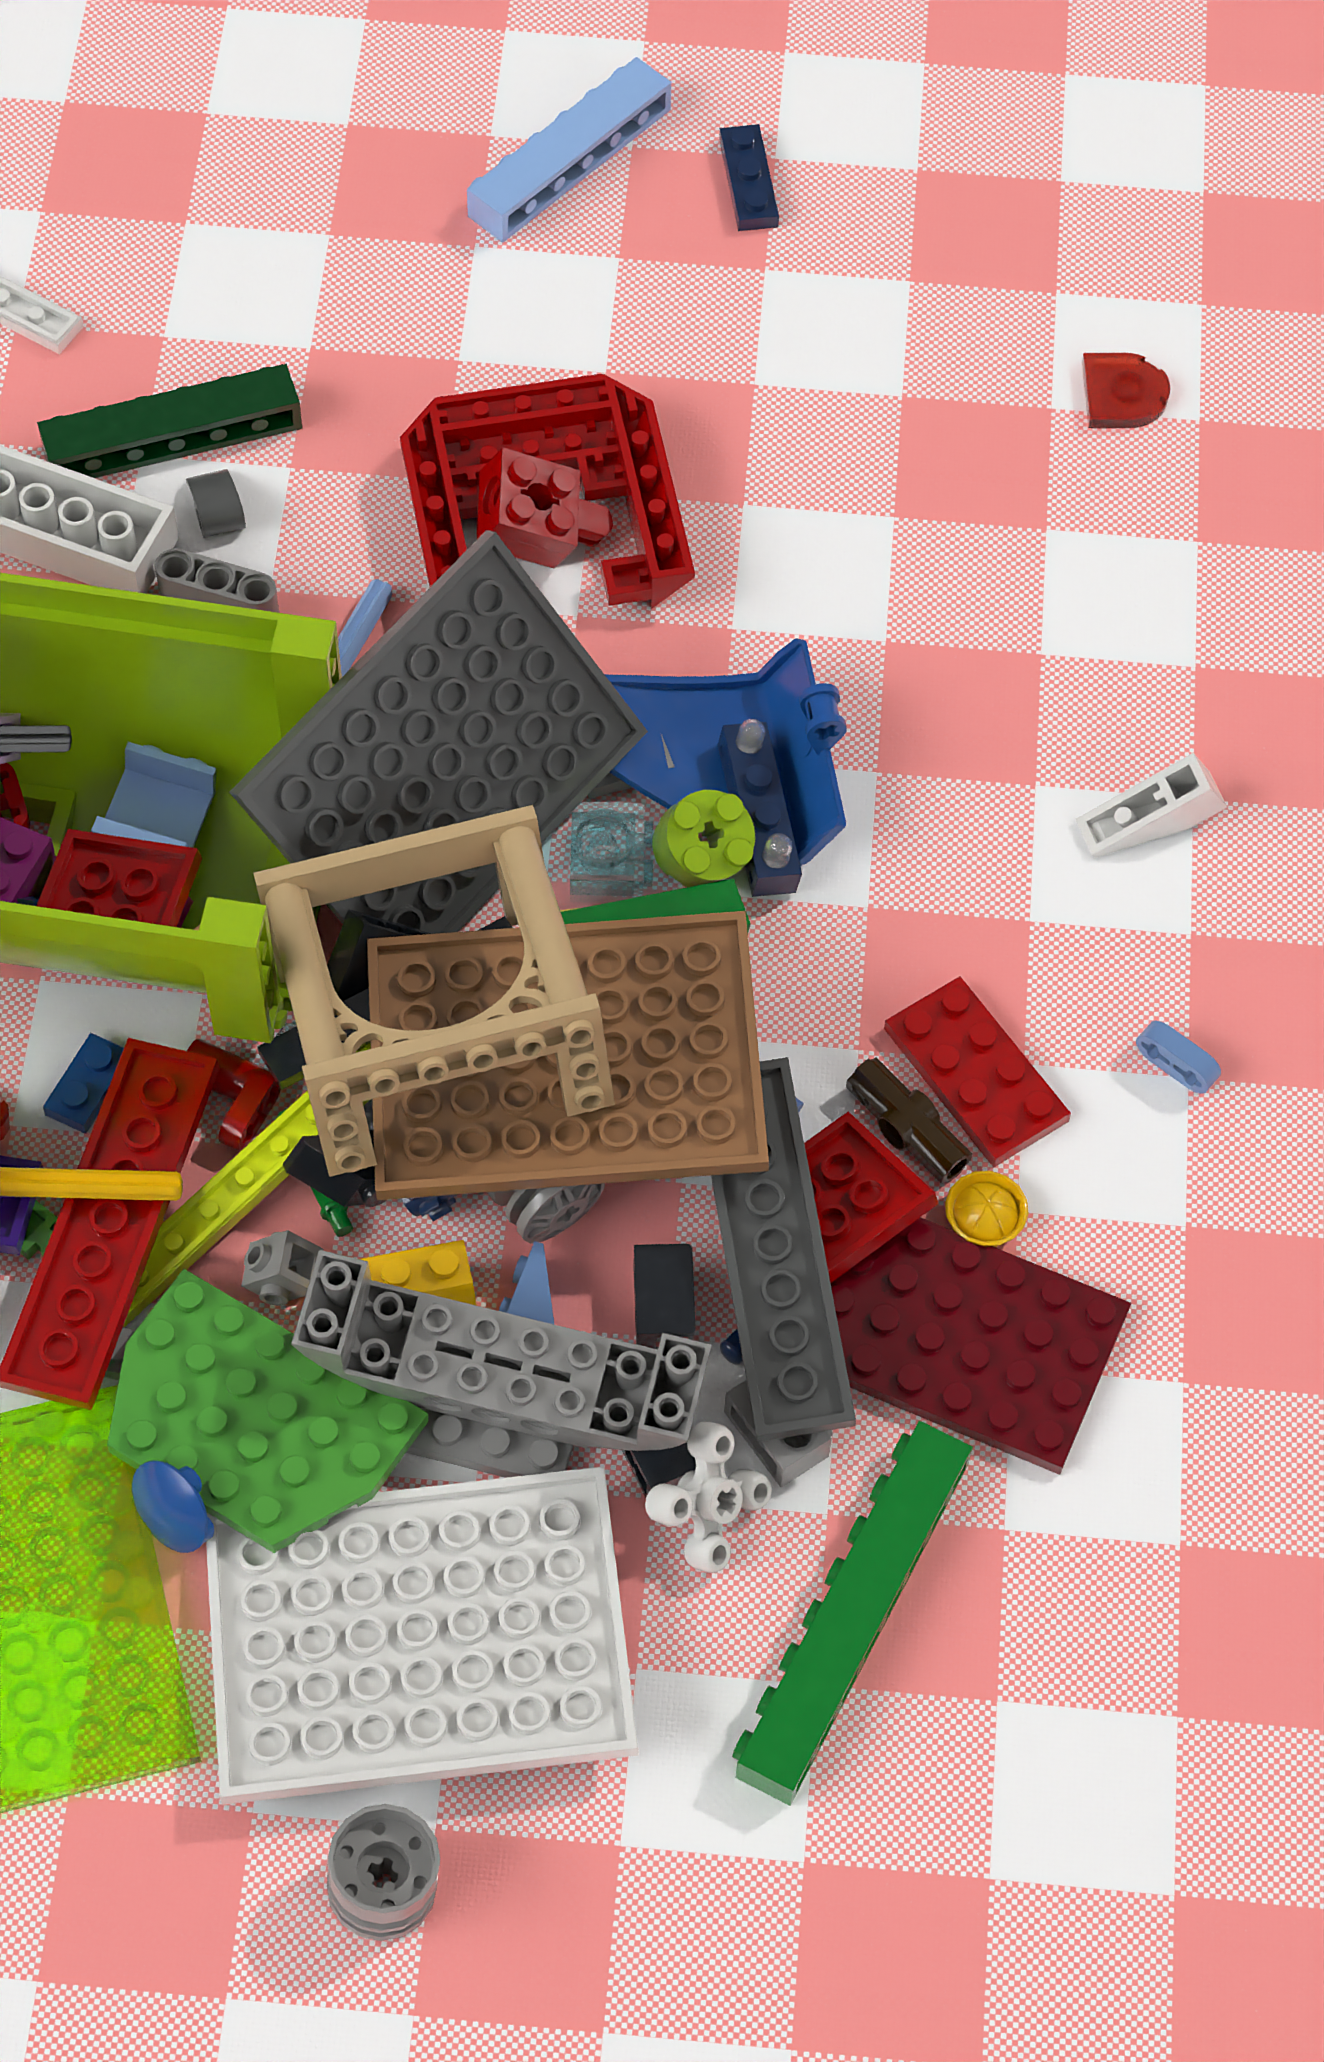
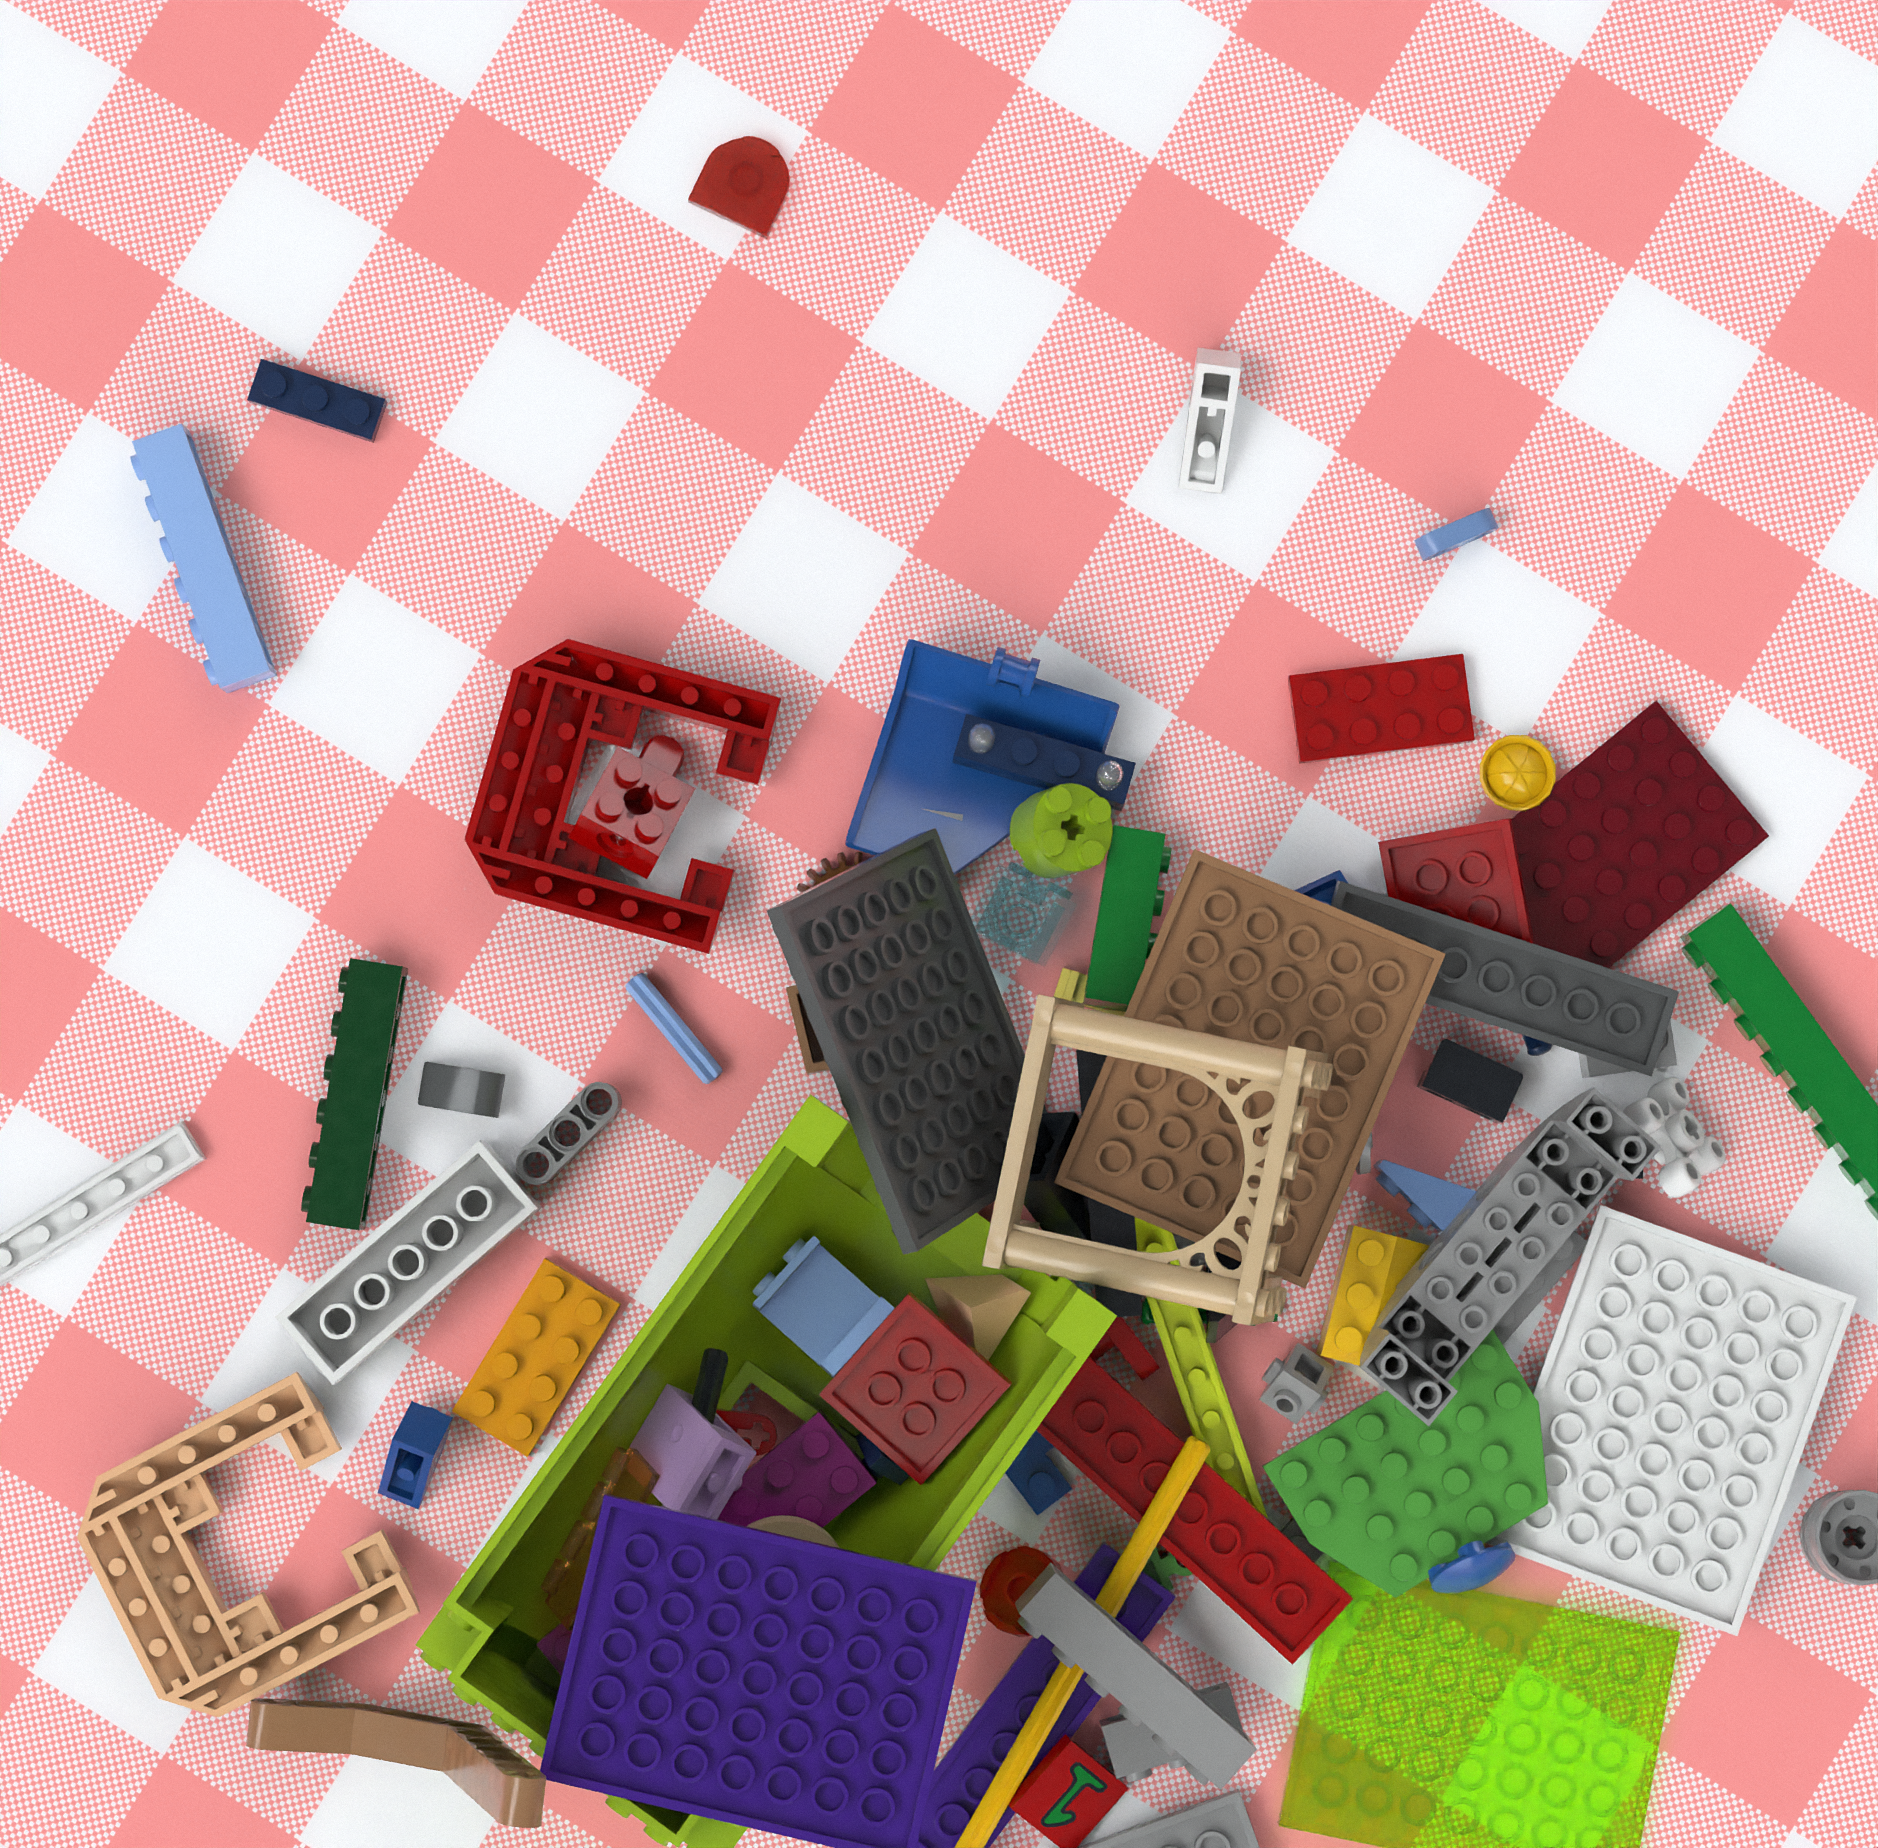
camera: 60 degrees left, 25 degrees up
(908, 1120) = (1405, 793): dark brown piece -> none

